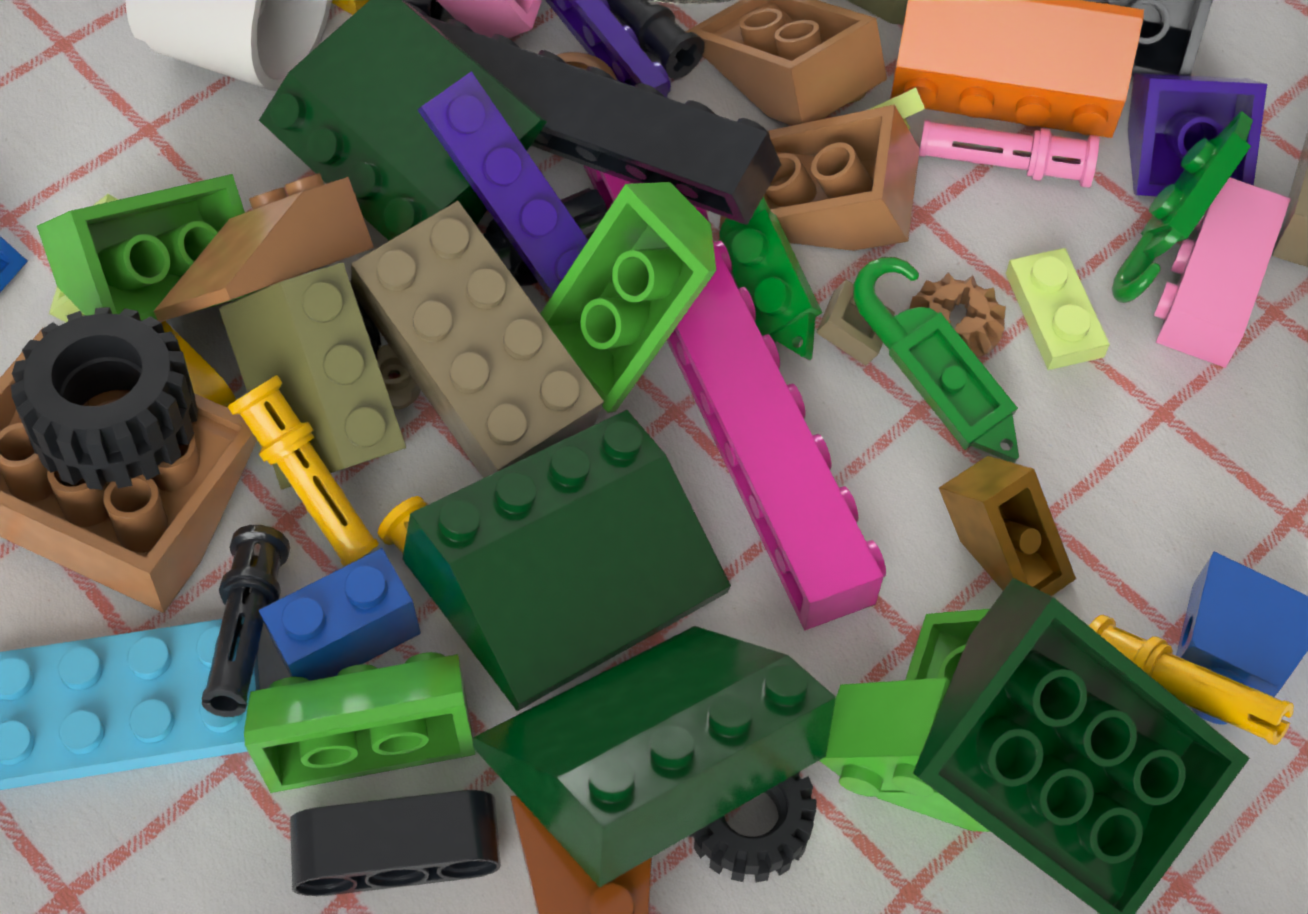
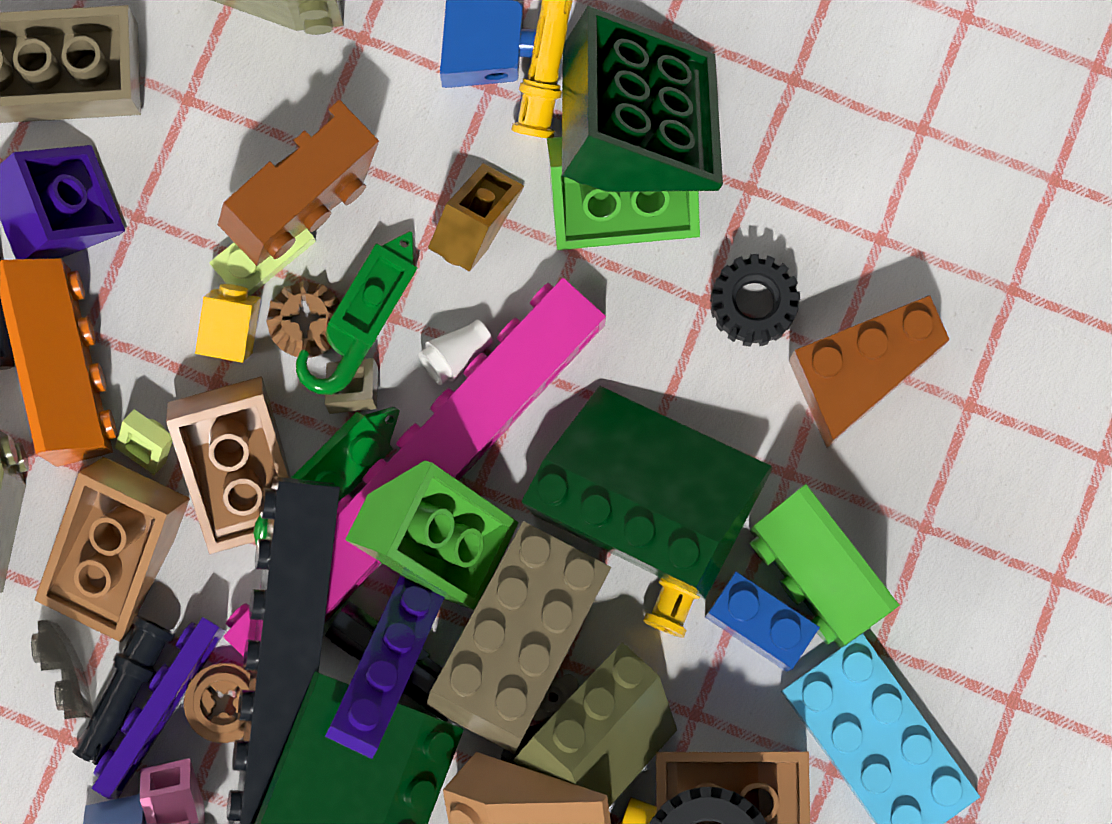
camera: 115 degrees left, 20 degrees up
(230, 679) = (767, 694): black pin -> none
(287, 444) = (695, 658): yellow pin -> none
(394, 843) = (885, 508): black beam -> none
(660, 746) = (753, 369): dark green slope -> none
(849, 438) = (450, 354): none -> white cone
(881, 733) = (675, 232): bright green brick -> none
(938, 140) = (127, 316): bright pink pin -> none
(982, 228) = (228, 323): none -> yellow brick
(1117, 340) = (301, 188): none -> dark orange wedge
(1182, 205) = (134, 183): green plate -> none
(1221, 273) = (179, 143): bright pink brick -> none

